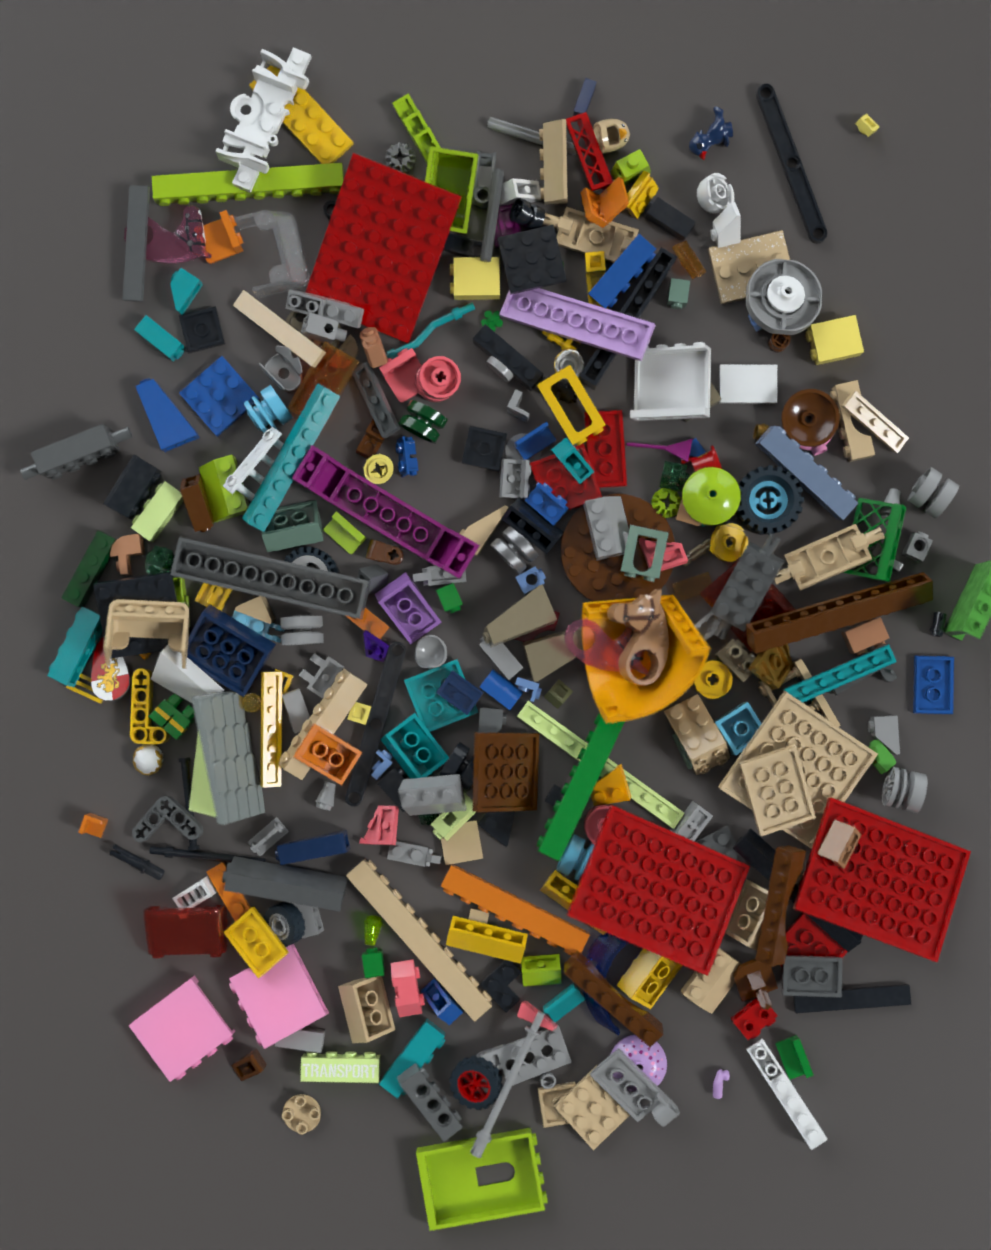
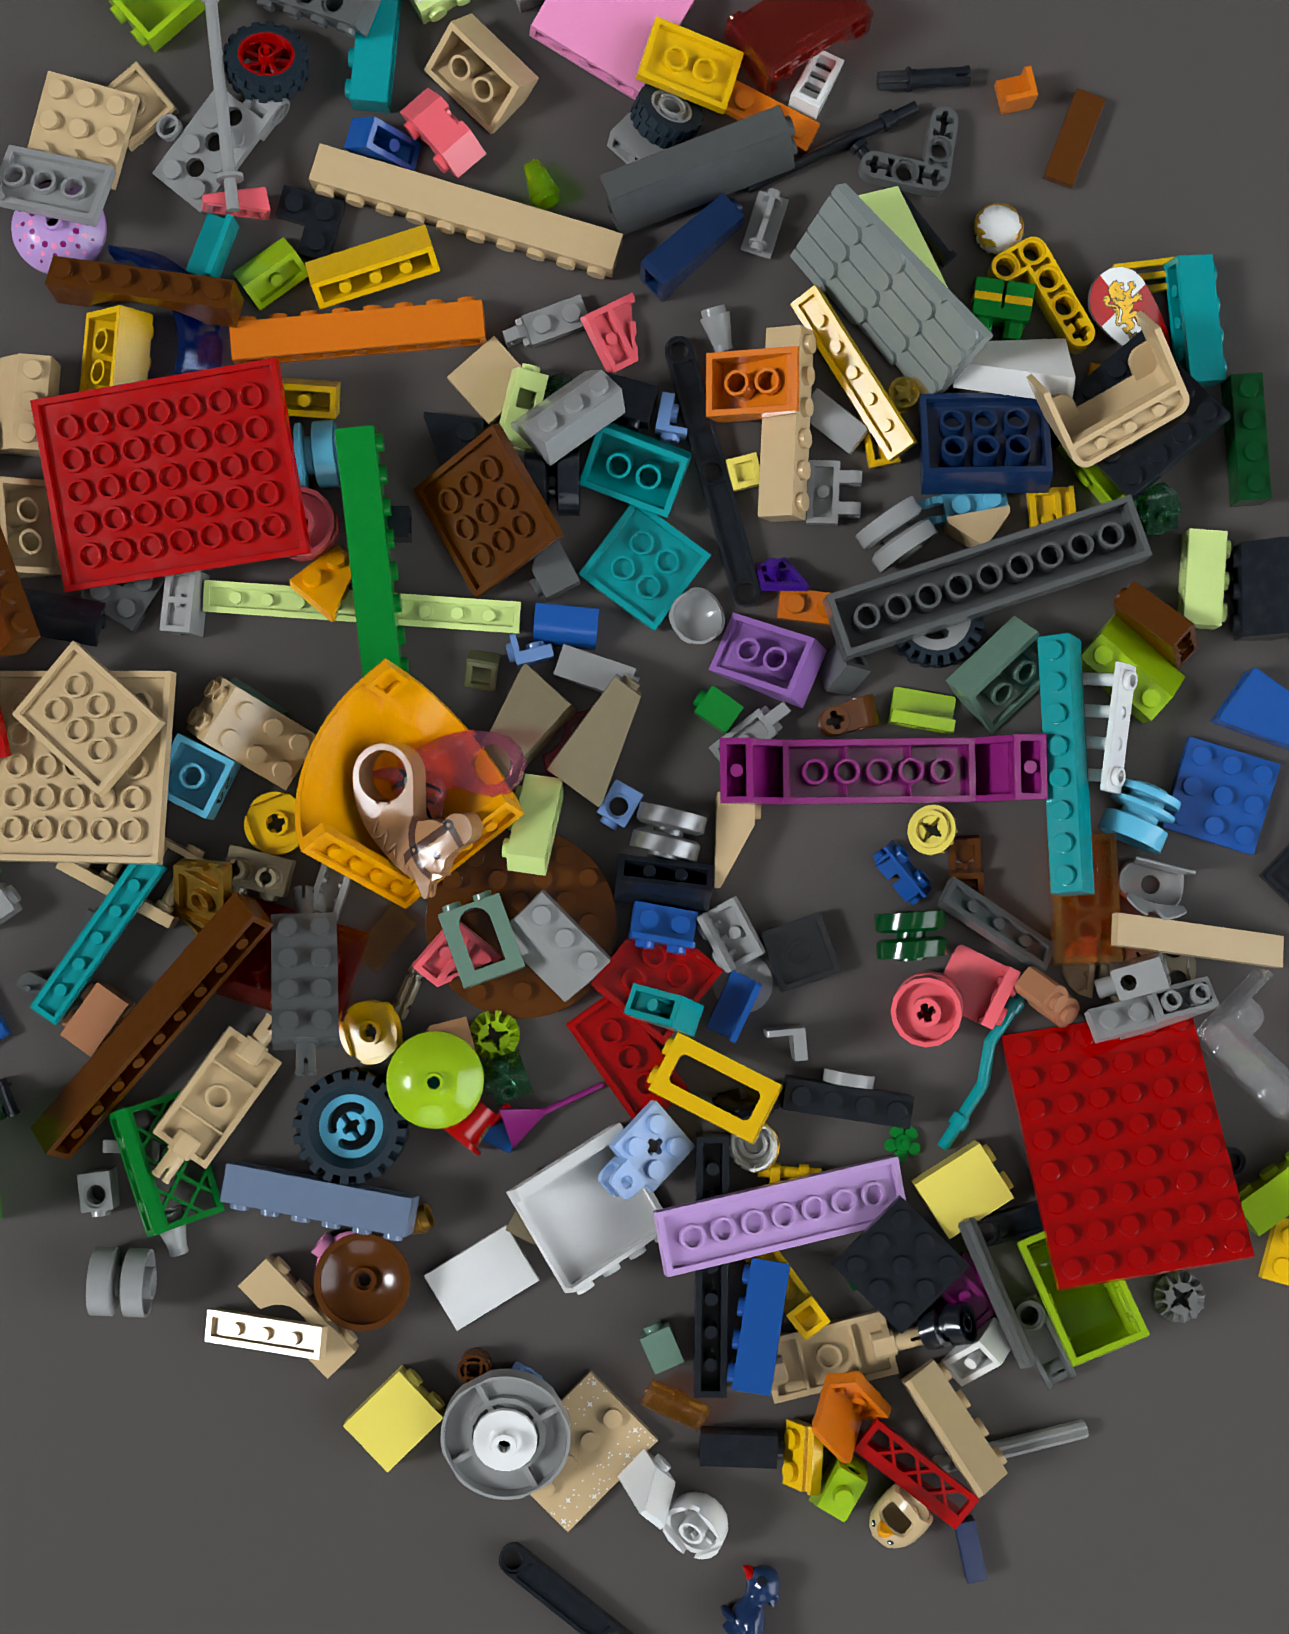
camera: 135 degrees right, 0 degrees up
(78, 782) = (1074, 138): none -> reddish brown tile
(124, 548) = (1217, 496): nougat brick -> none
(373, 962) = (510, 140): green brick -> none
(415, 125) = (1188, 1358): lime slope -> none
(459, 692) = (621, 584): dark blue plate -> none
(478, 915) = (404, 293): tan tile -> none
(584, 590) = (534, 832): none -> yellowish green brick
(635, 390) = (634, 1165): none -> light blue plate

